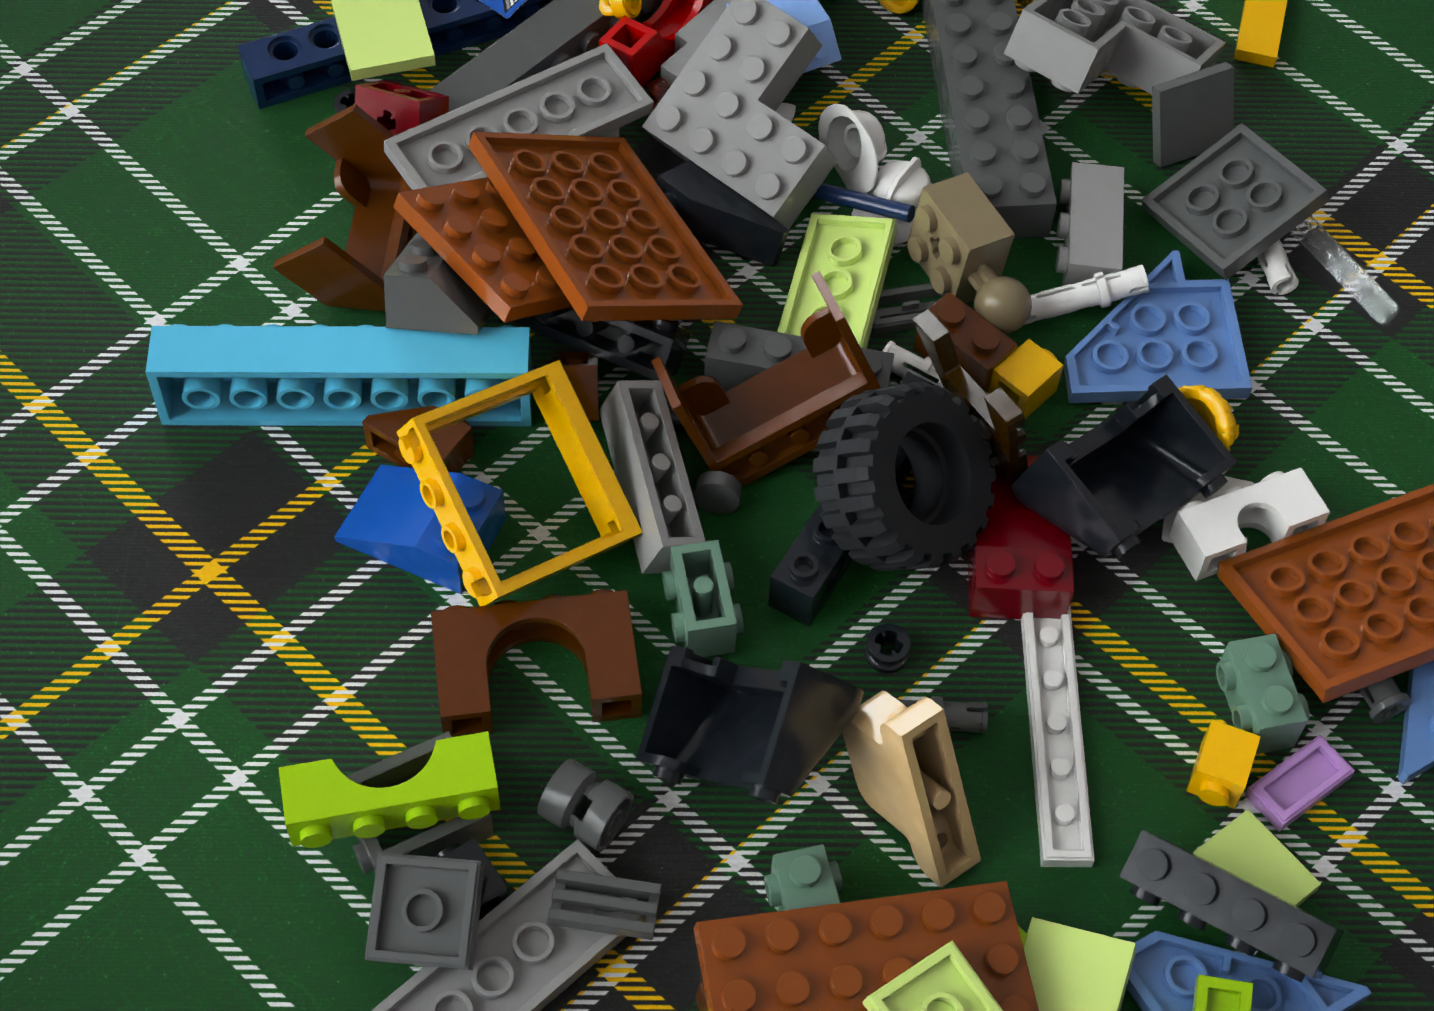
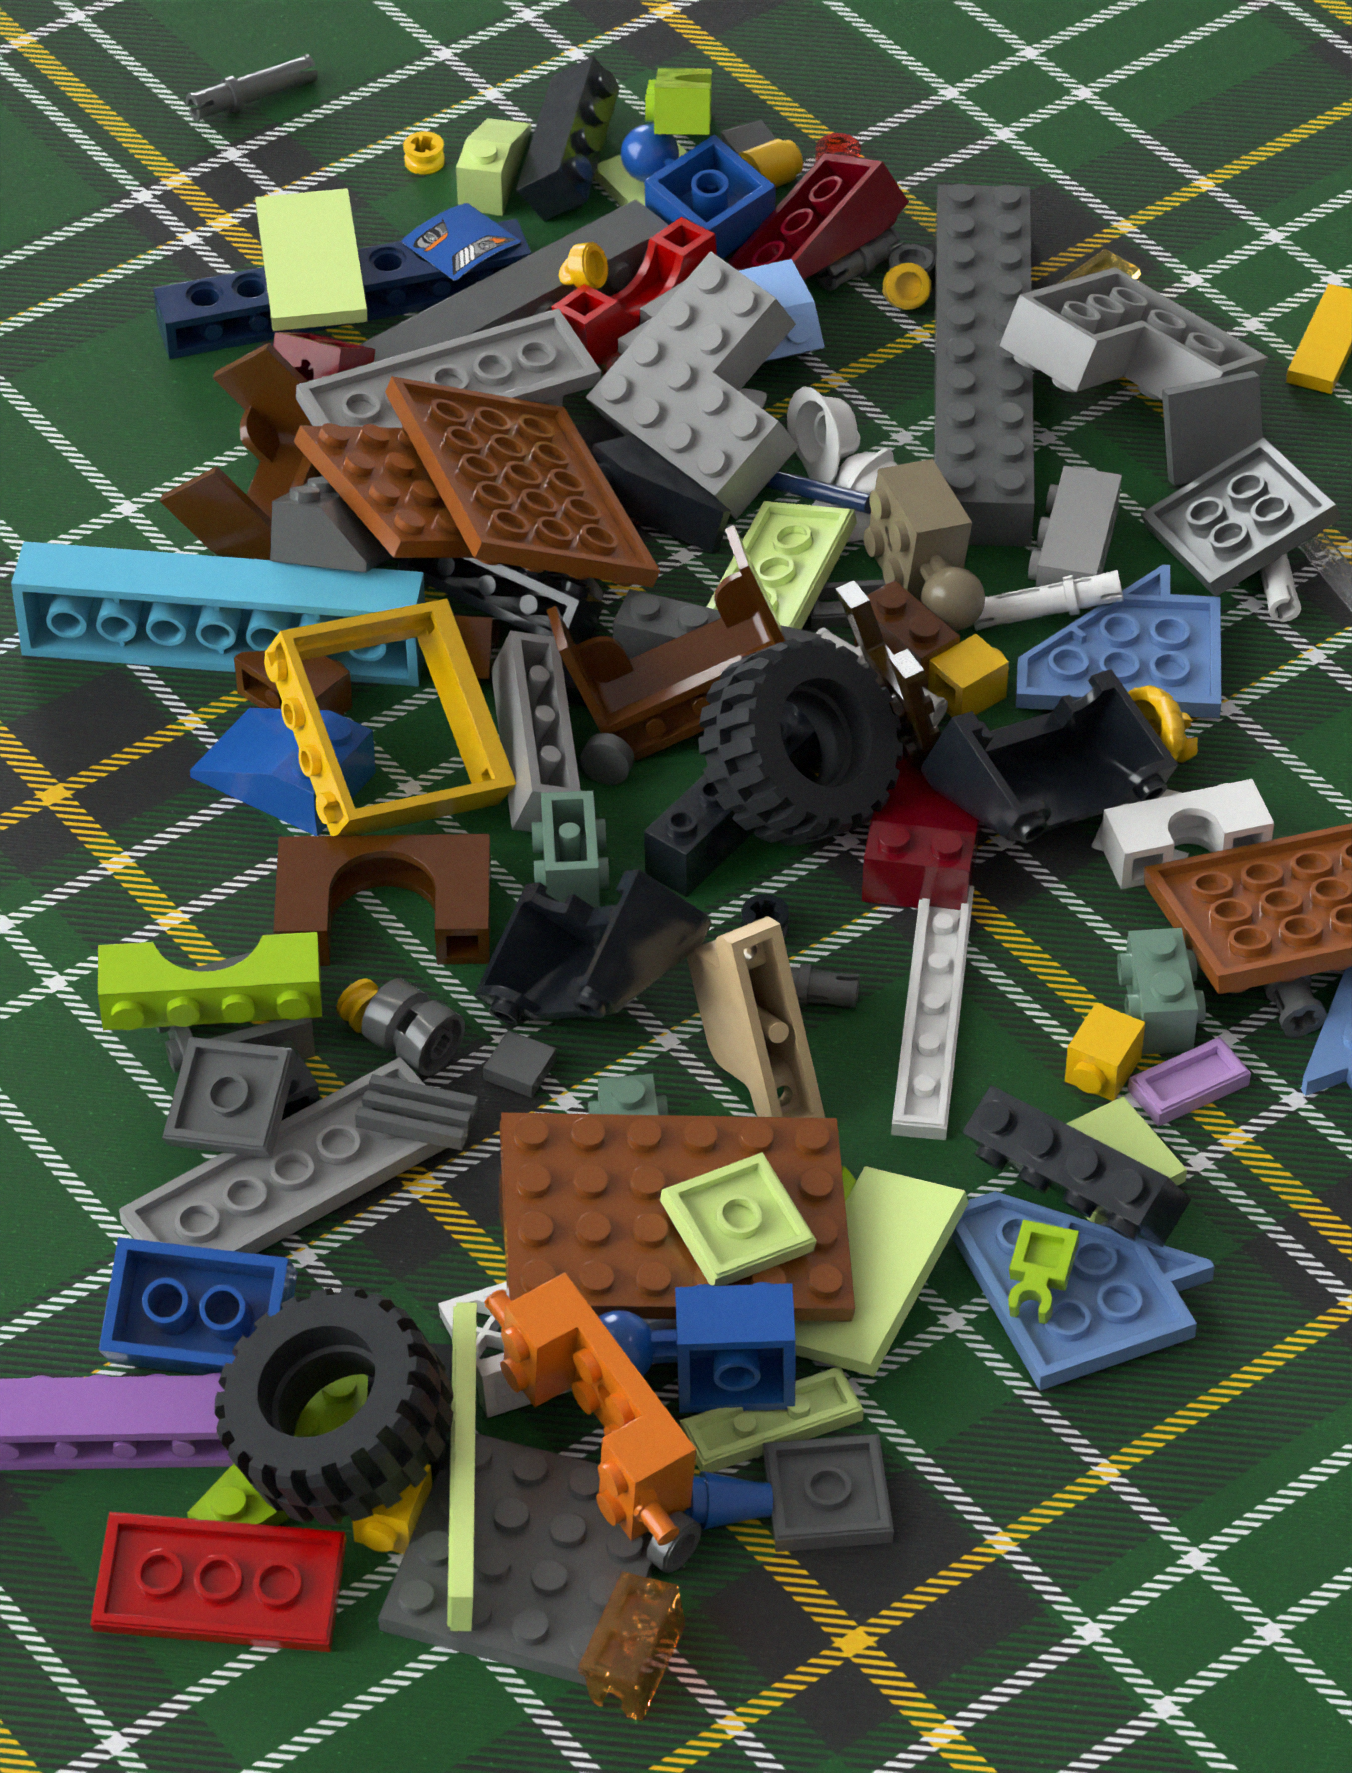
camera: 10 degrees right, 10 degrees down
(531, 781) = (354, 1002): none -> yellow bush
(688, 828) = (519, 1064): none -> dark grey tile

